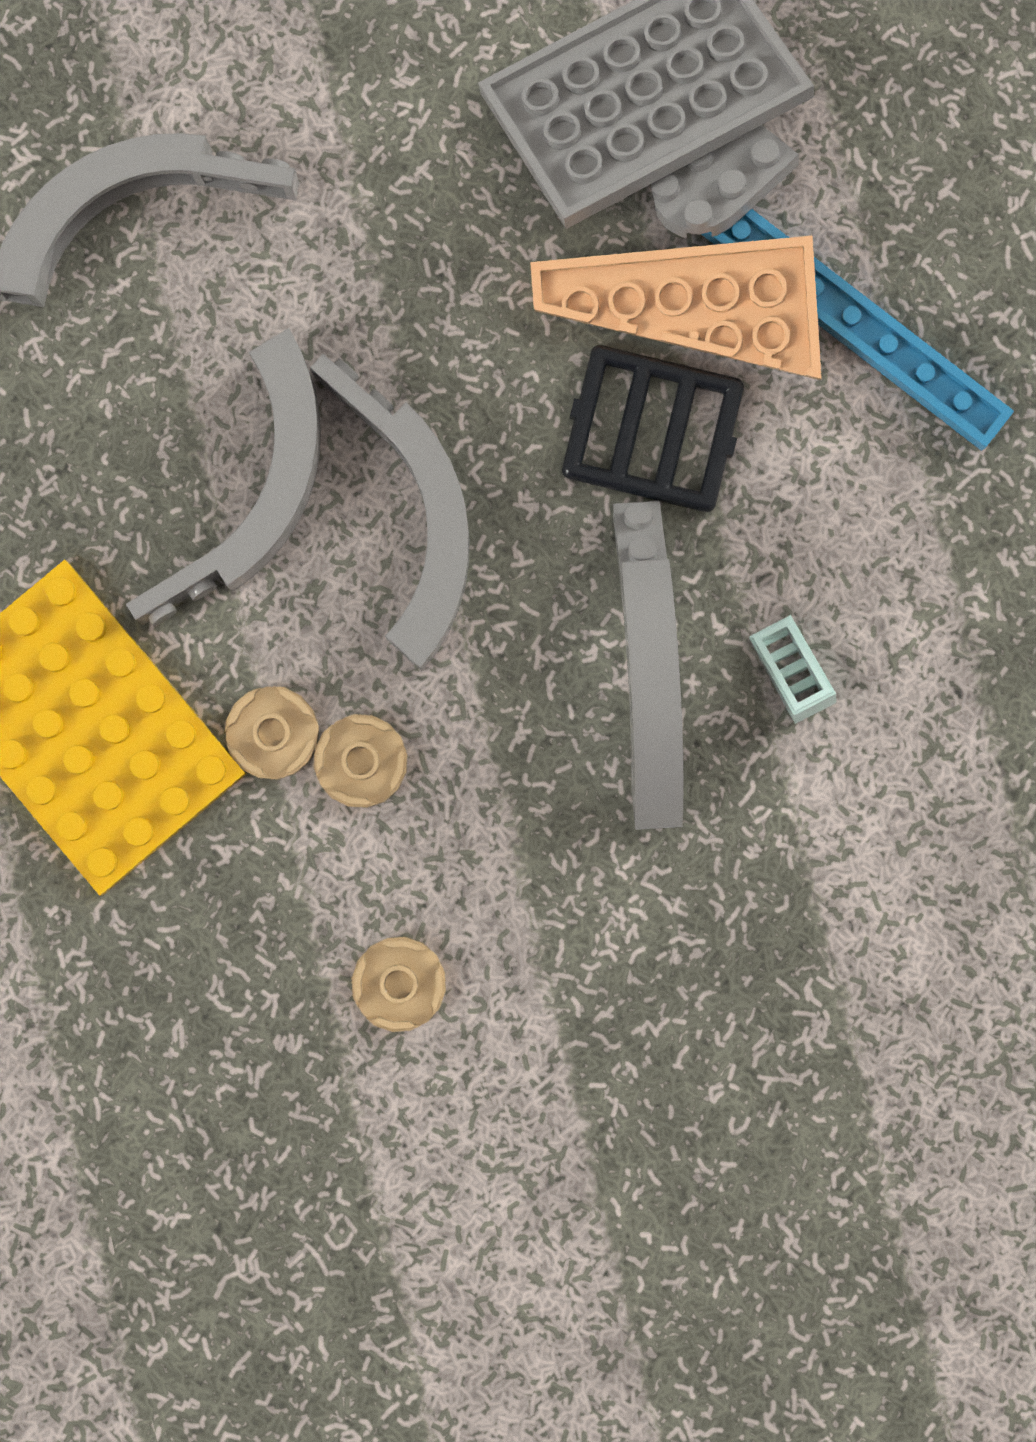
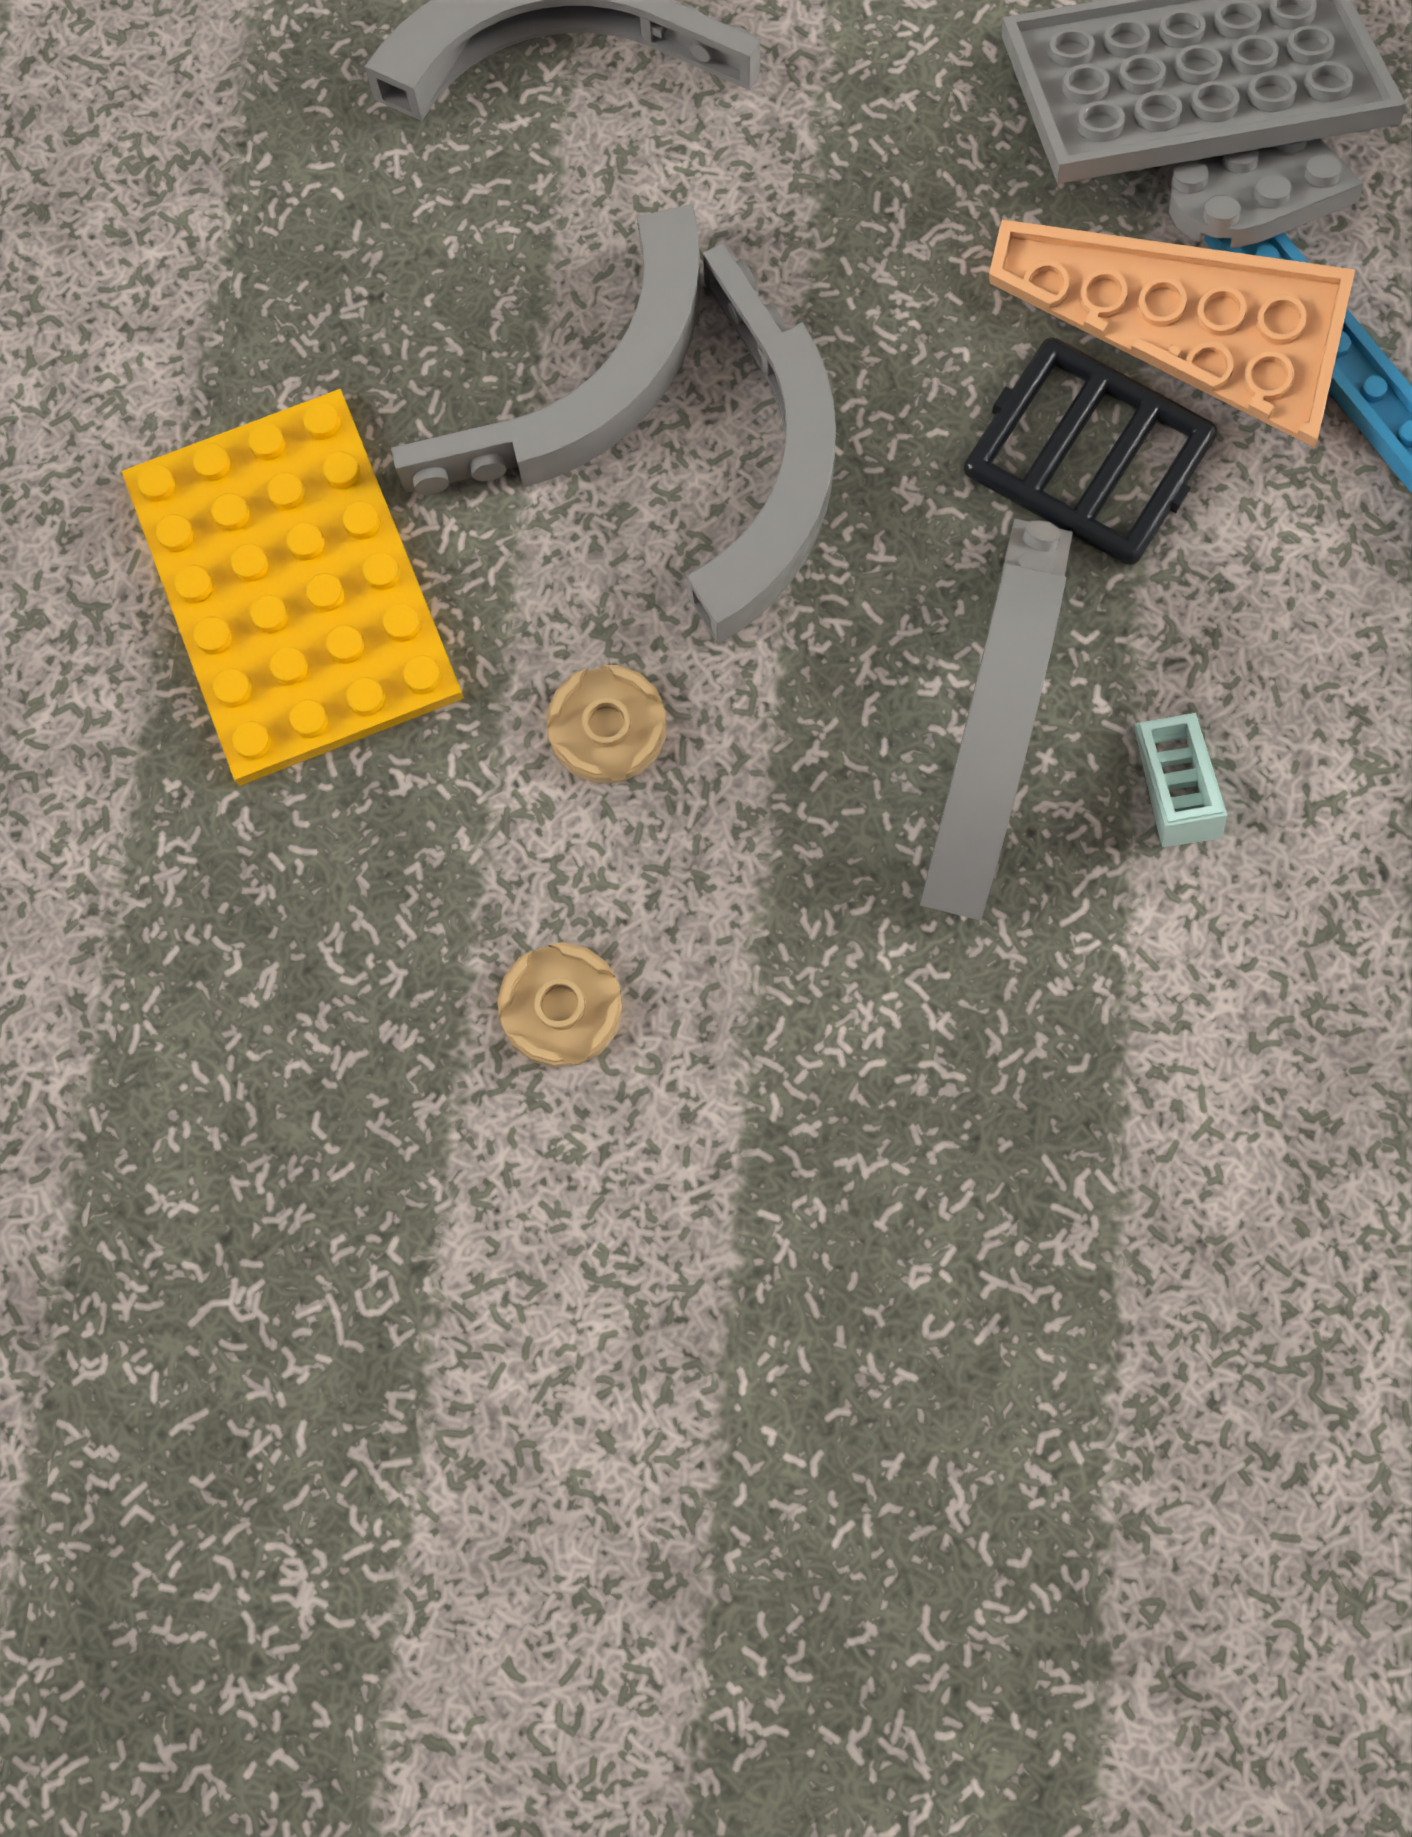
camera: 25 degrees right, 10 degrees down
(288, 741) = (512, 679): tan tile -> none

